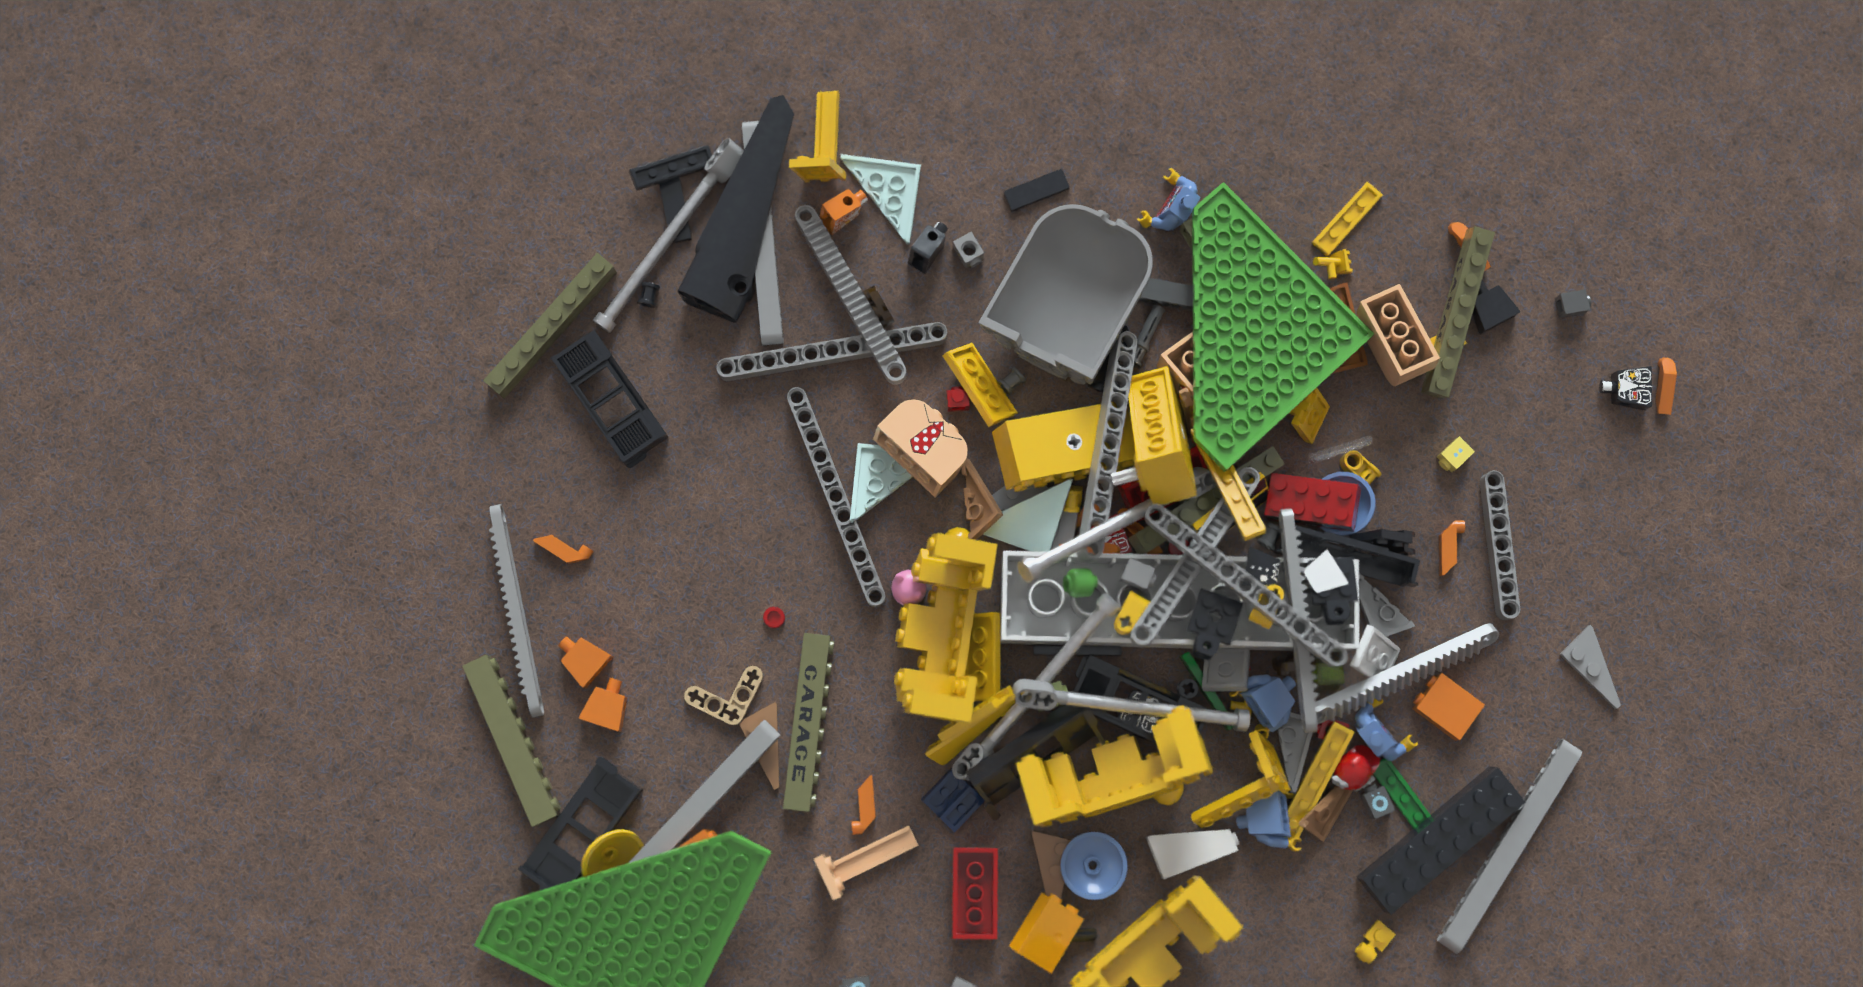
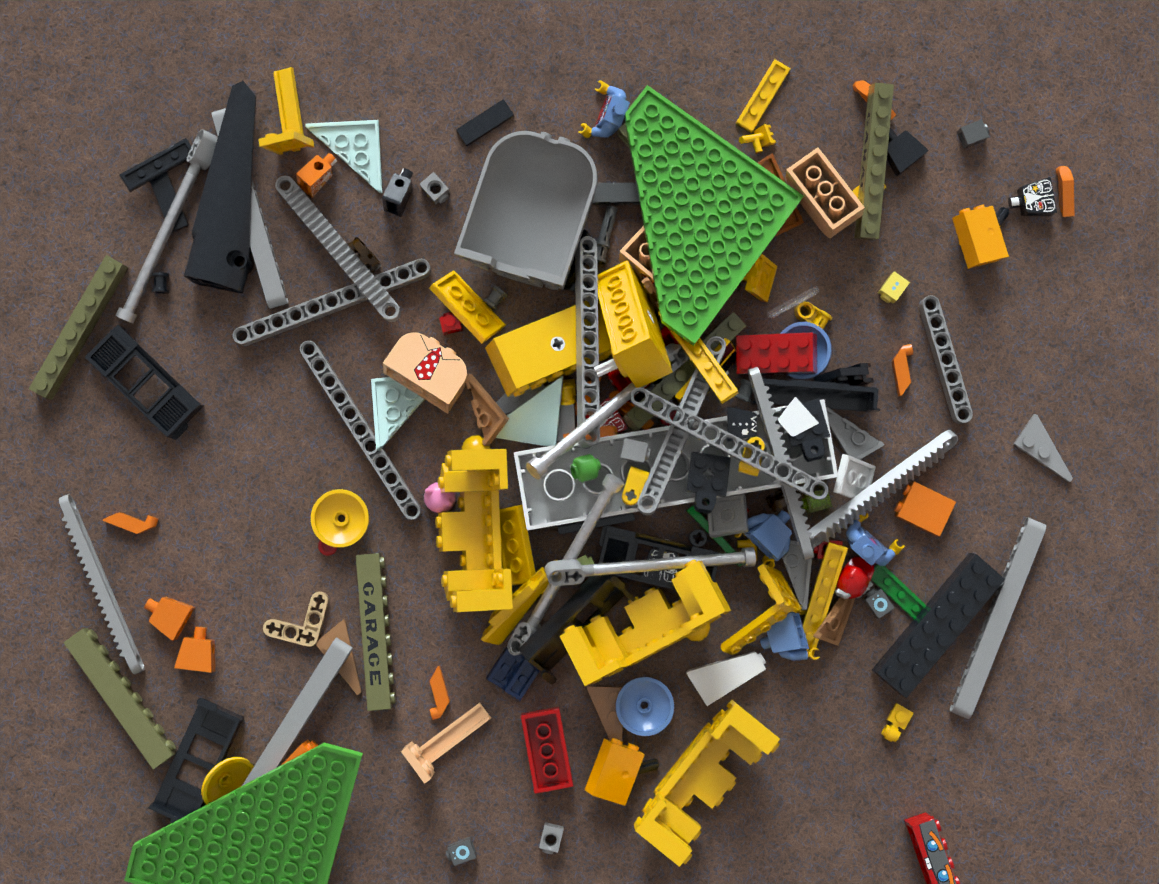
camera: 15 degrees left, 5 degrees up
(783, 577) = (326, 514): none -> yellow dish
(1563, 415) = (981, 234): none -> light orange piece

